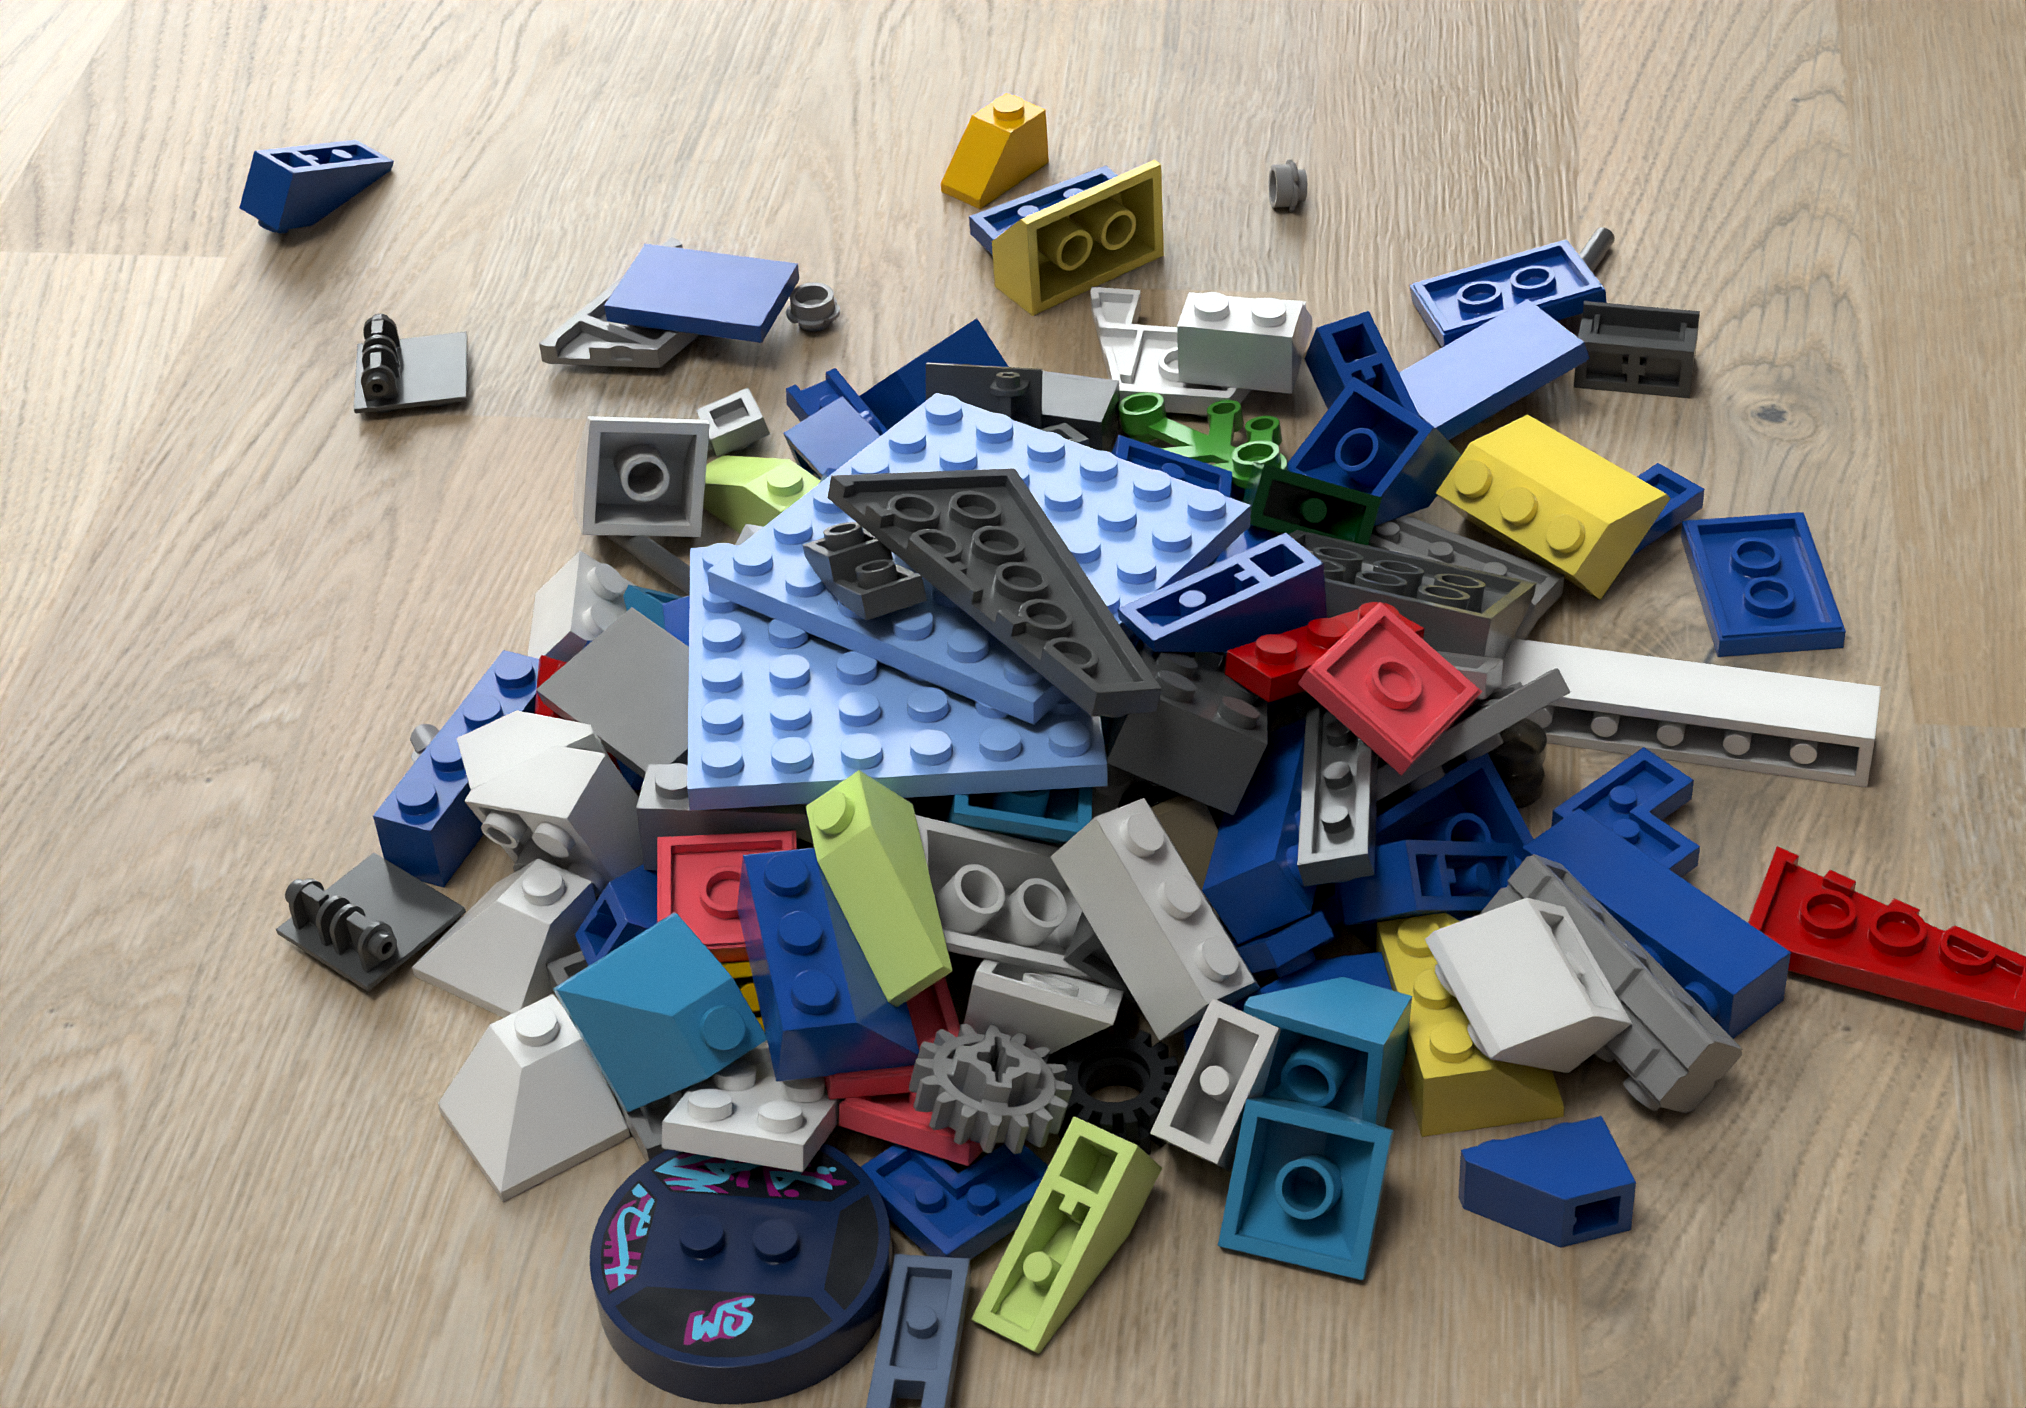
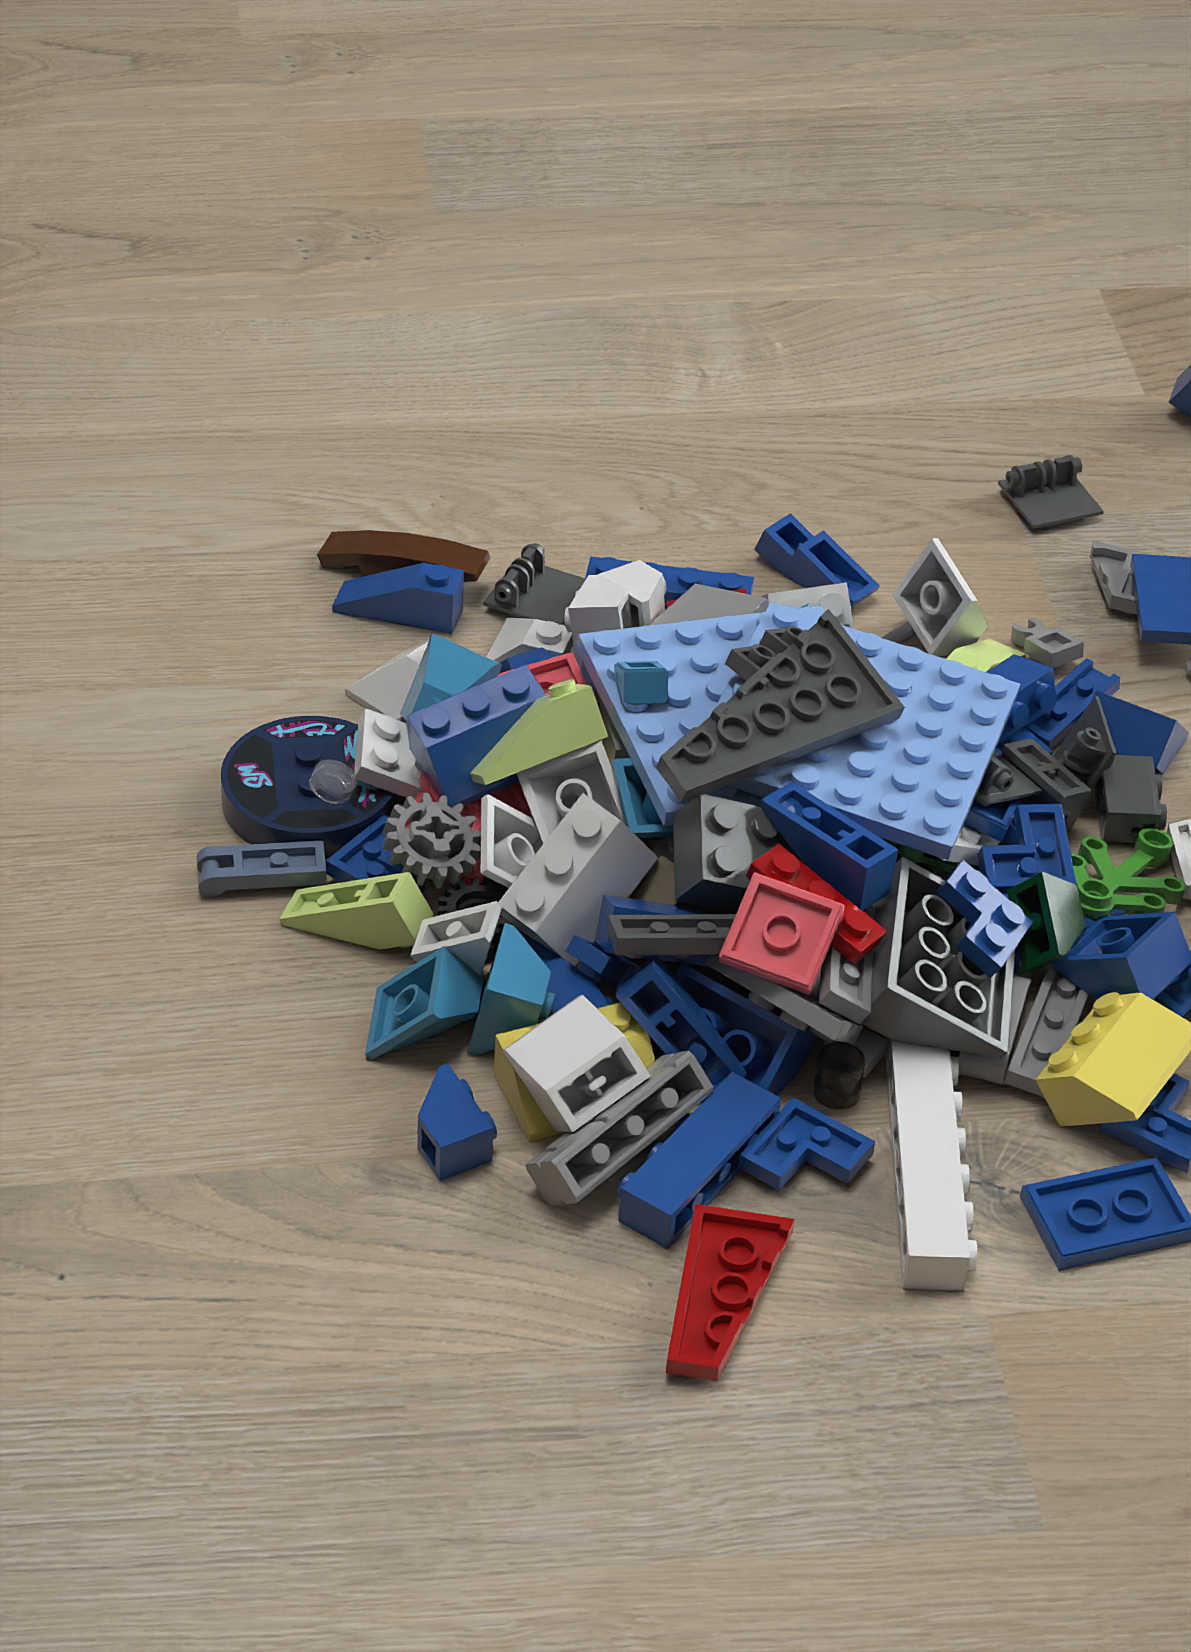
camera: 70 degrees right, 0 degrees up
(215, 1063) = (389, 551): none -> reddish brown slope
(318, 1077) = (408, 596): none -> blue slope
(449, 609) = (812, 559): none -> blue slope
(797, 1202) = (333, 781): none -> clear tile
(839, 726) = (642, 682): none -> dark azure slope
(1327, 530) = (994, 920): none -> blue plate

